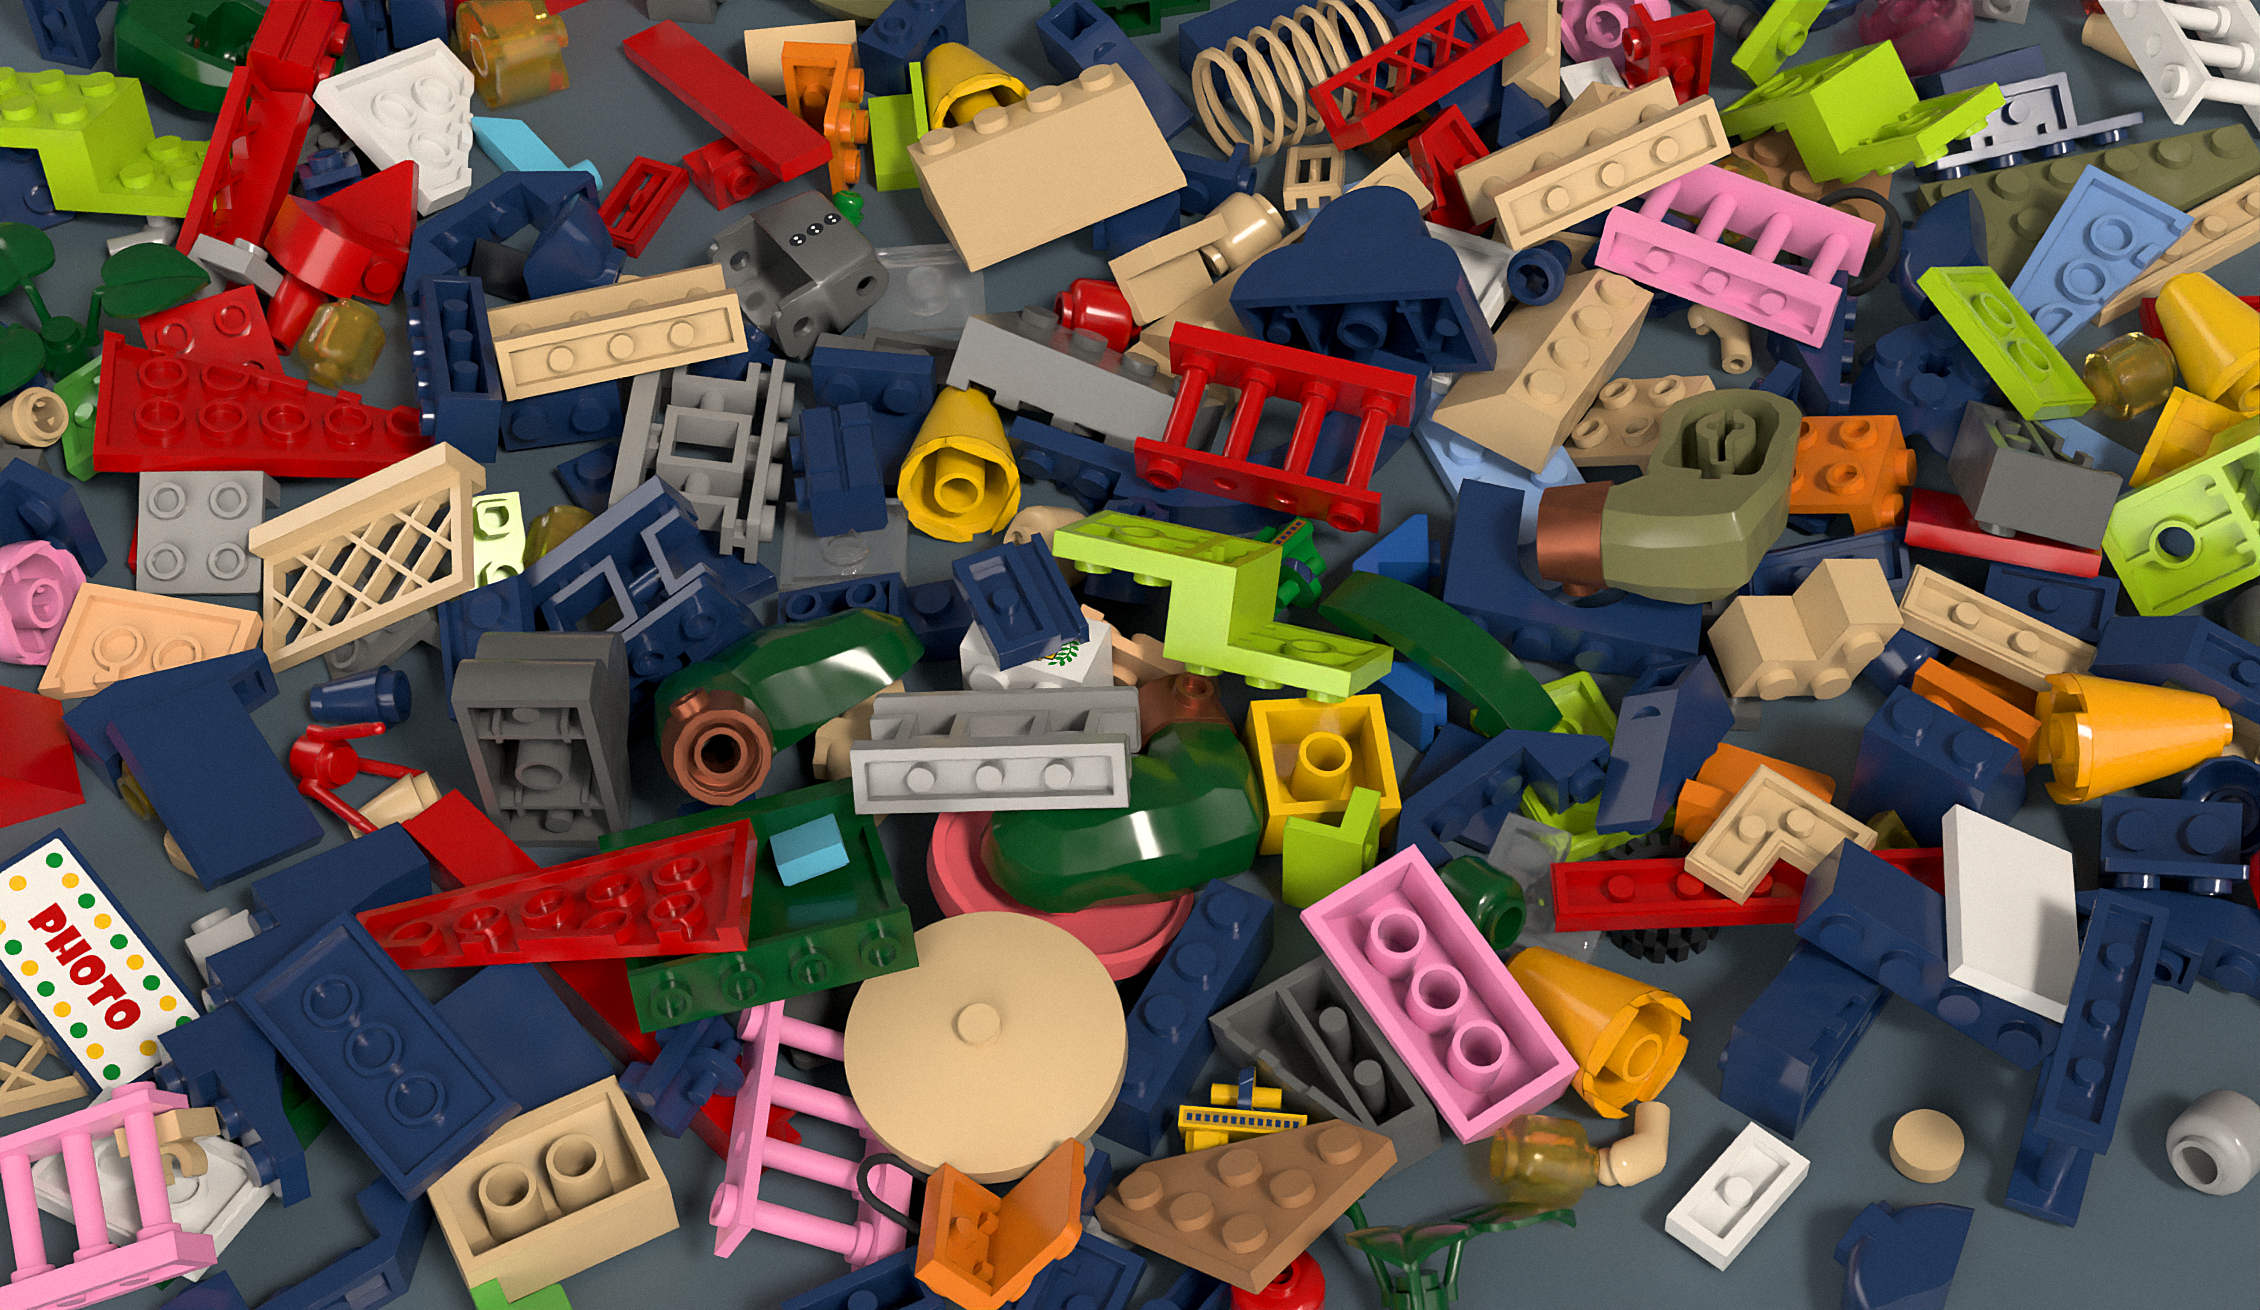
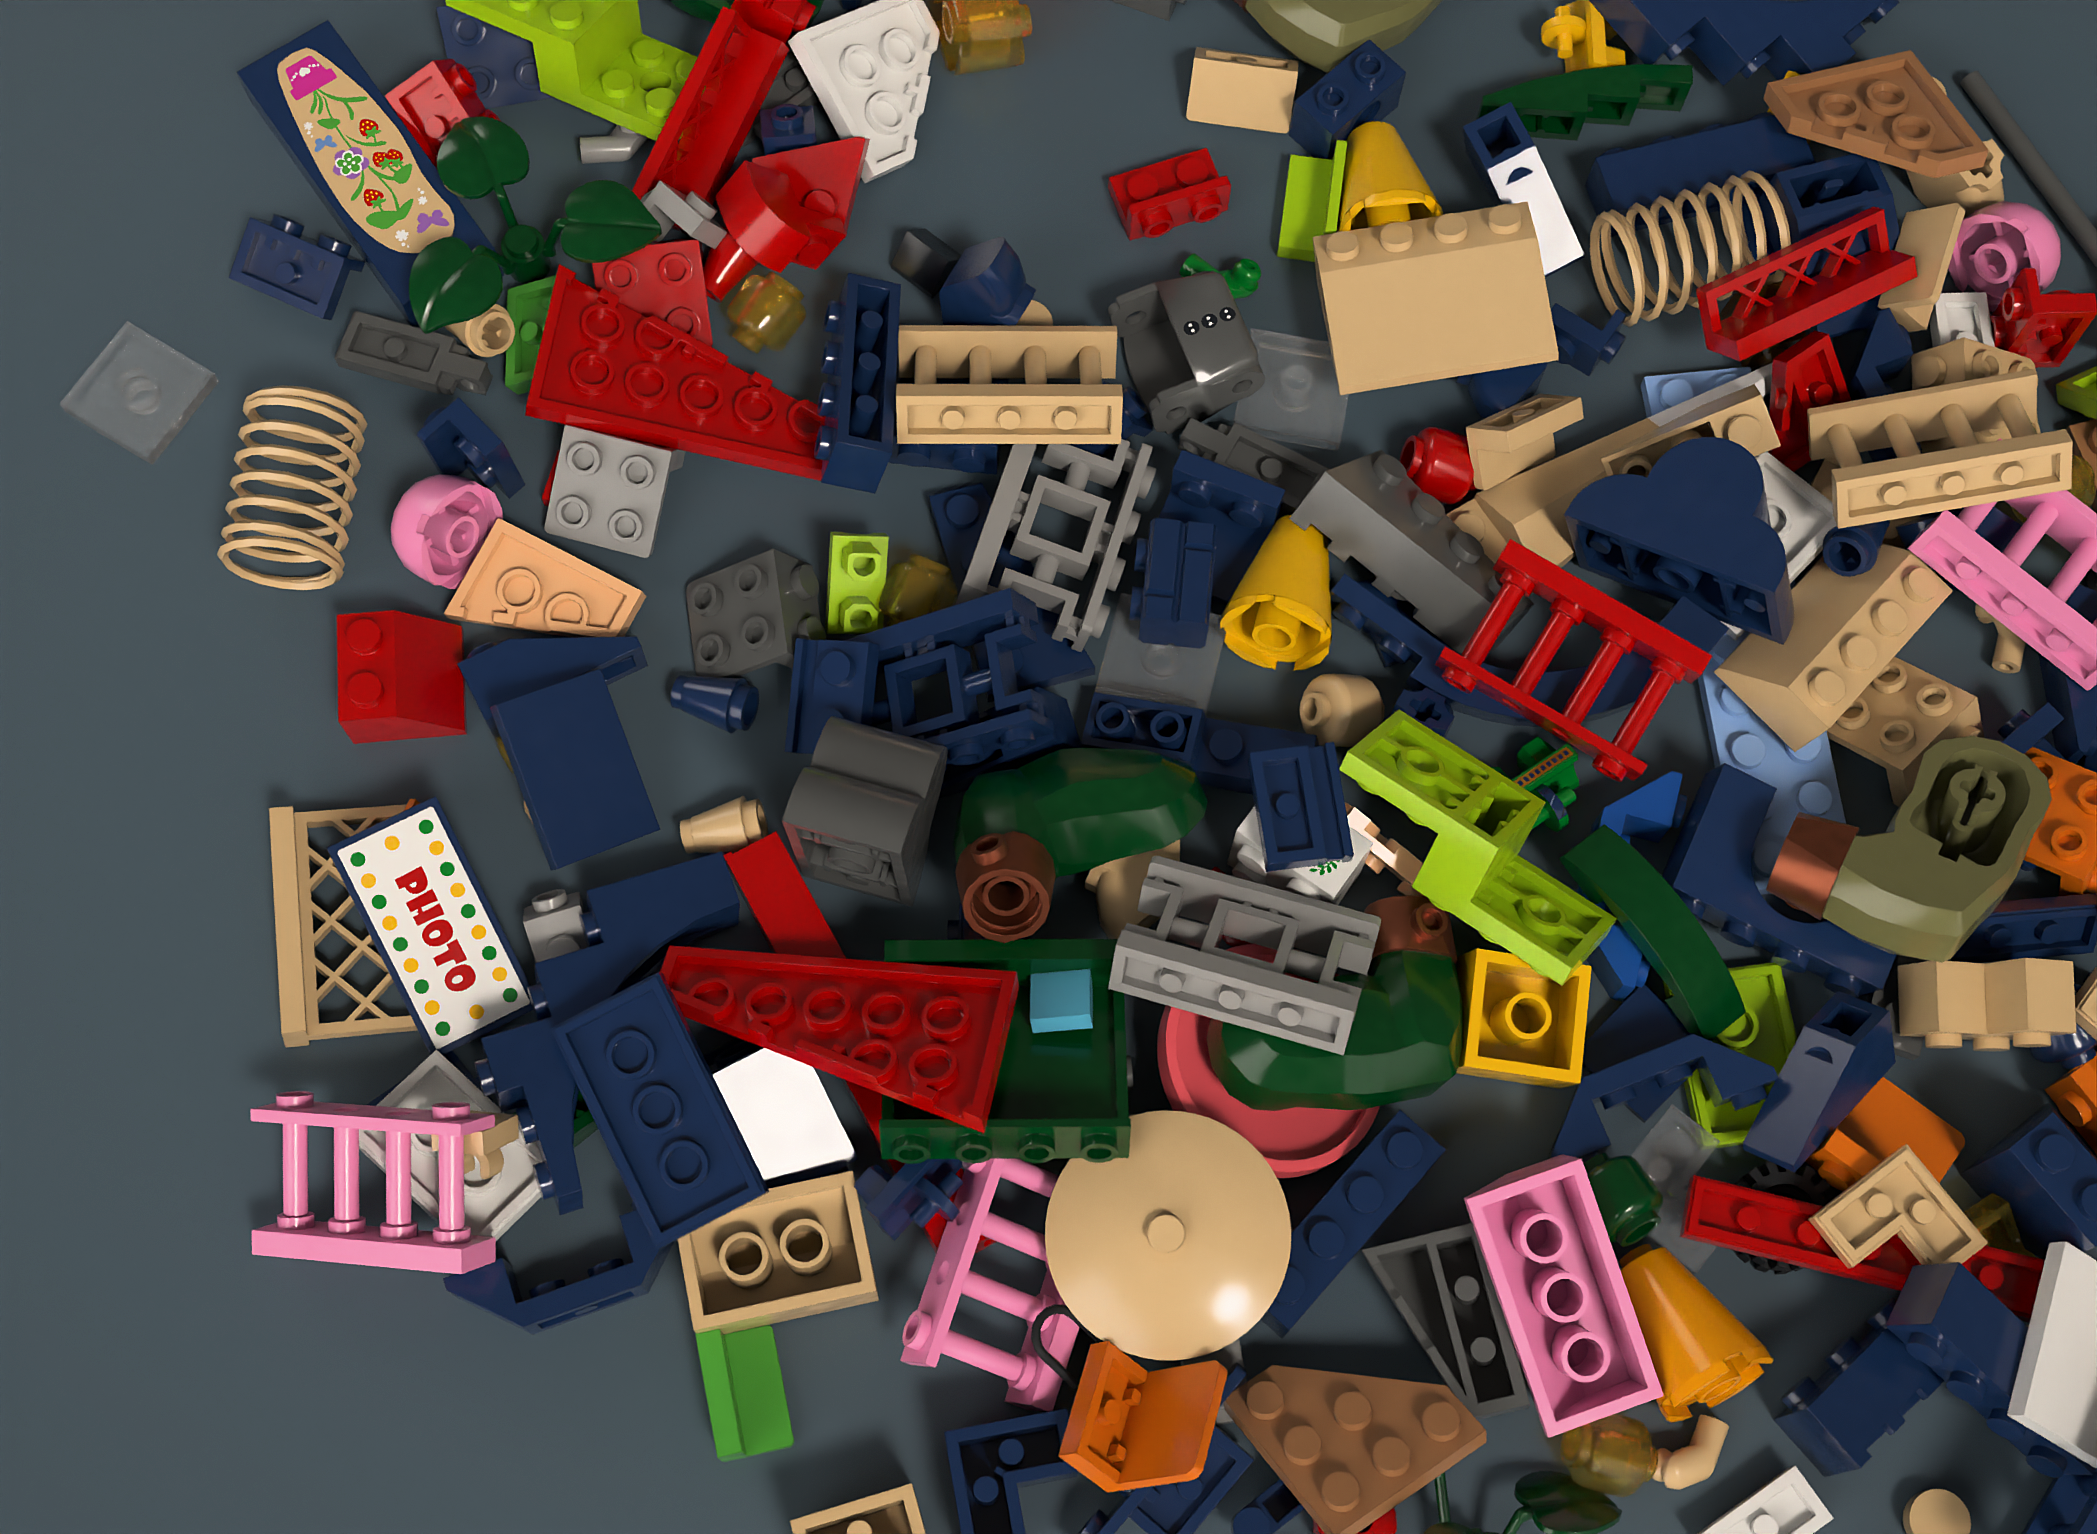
camera: 10 degrees right, 20 degrees up
(328, 761) = (679, 763): red plant -> none
(361, 518) = (739, 528): tan fence -> none
(494, 215) = (984, 202): dark blue slope -> none
(518, 148) = (972, 147): medium azure piece -> none
(647, 207) = (1033, 250): red tile -> none
(728, 100) = (1162, 134): red tile -> none
(826, 93) = (1253, 155): orange bracket -> none
(1215, 1127) = (1339, 1341): yellow hips -> none
(1252, 229) = (1604, 404): tan head -> none
(1315, 187) = (1672, 383): tan tile -> none
(1326, 857) = (1506, 1126): lime panel -> none

